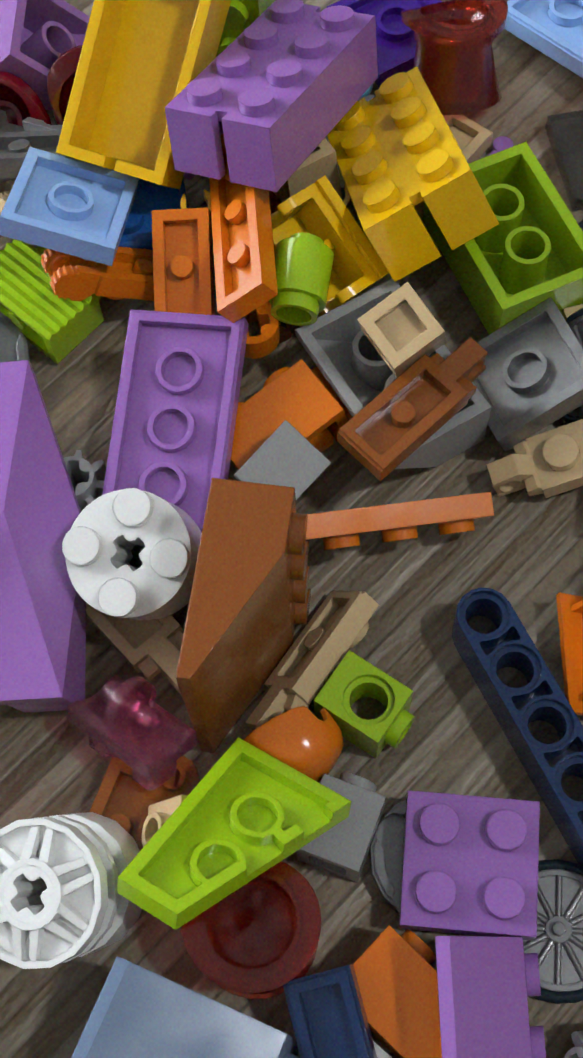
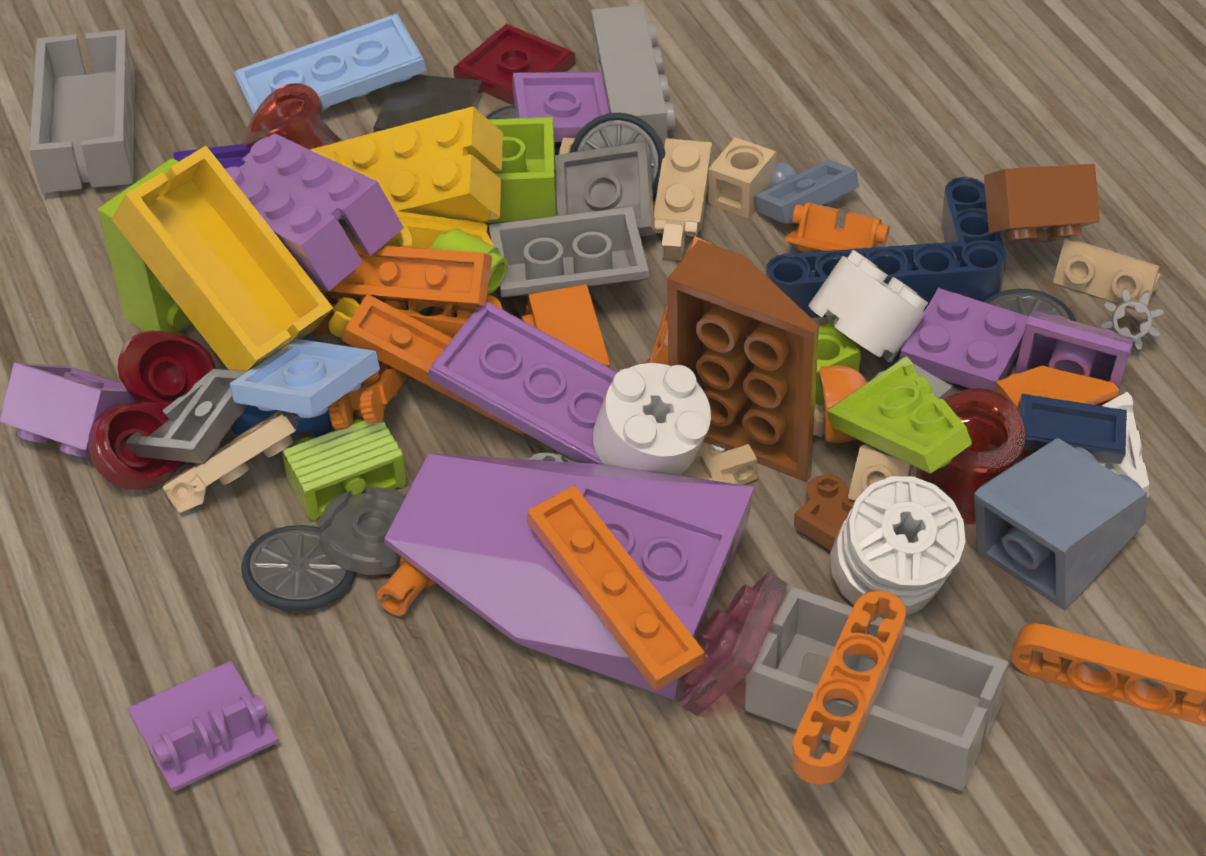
camera: 70 degrees left, 20 degrees down
(131, 726) = (786, 470): clear pink hips -> none
(284, 461) = (622, 326): light grey brick -> none
(402, 329) = (559, 209): tan brick -> none
(412, 408) = (620, 235): dark orange hinge -> none
(447, 728) = (867, 308): none -> white brick

